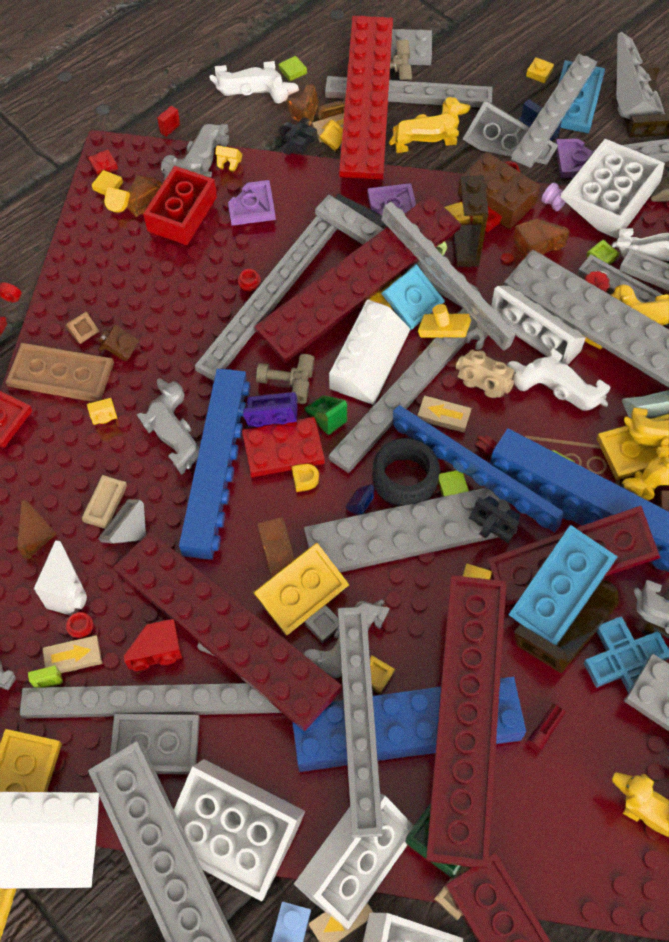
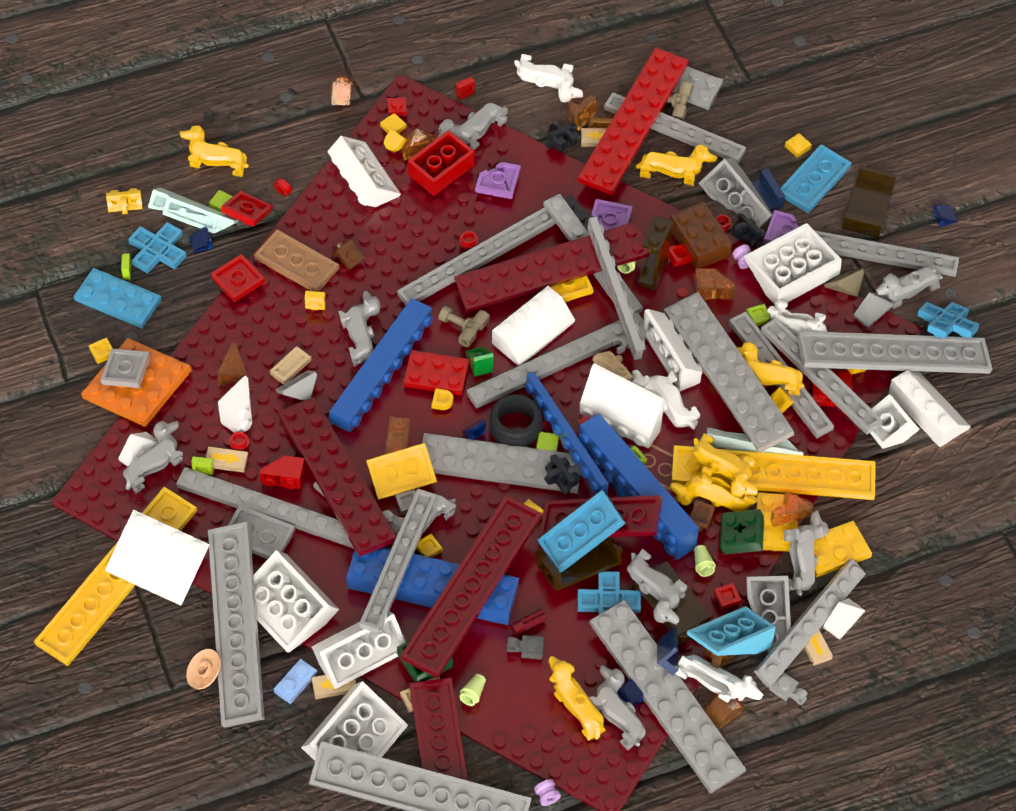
camera: 20 degrees right, 5 degrees down
(34, 166) = (342, 91): none -> clear orange slope
(82, 327) = (326, 233): medium nougat slope -> none
(95, 244) = (363, 172): none -> white slope
(232, 155) = (496, 133): yellow tile -> none
(271, 409) = (439, 342): dark purple bracket -> none
(292, 68) = (589, 75): lime tile -> none
(332, 135) = (590, 143): yellow tile -> none
(412, 296) = (587, 296): medium azure tile -> none
(444, 324) = (598, 325): yellow tile -> none
(444, 414) = (566, 390): tan tile -> none
(527, 405) = (624, 405): none -> white slope
(527, 855) = (472, 690): none -> yellowish green cone
(551, 173) = (748, 225): none -> black hips
(554, 111) = (782, 184): light grey plate -> none
(563, 760) = (530, 646): none -> dark grey plate
(599, 279) = (737, 334): red piece -> none
(633, 90) = (862, 187): light grey wedge -> none

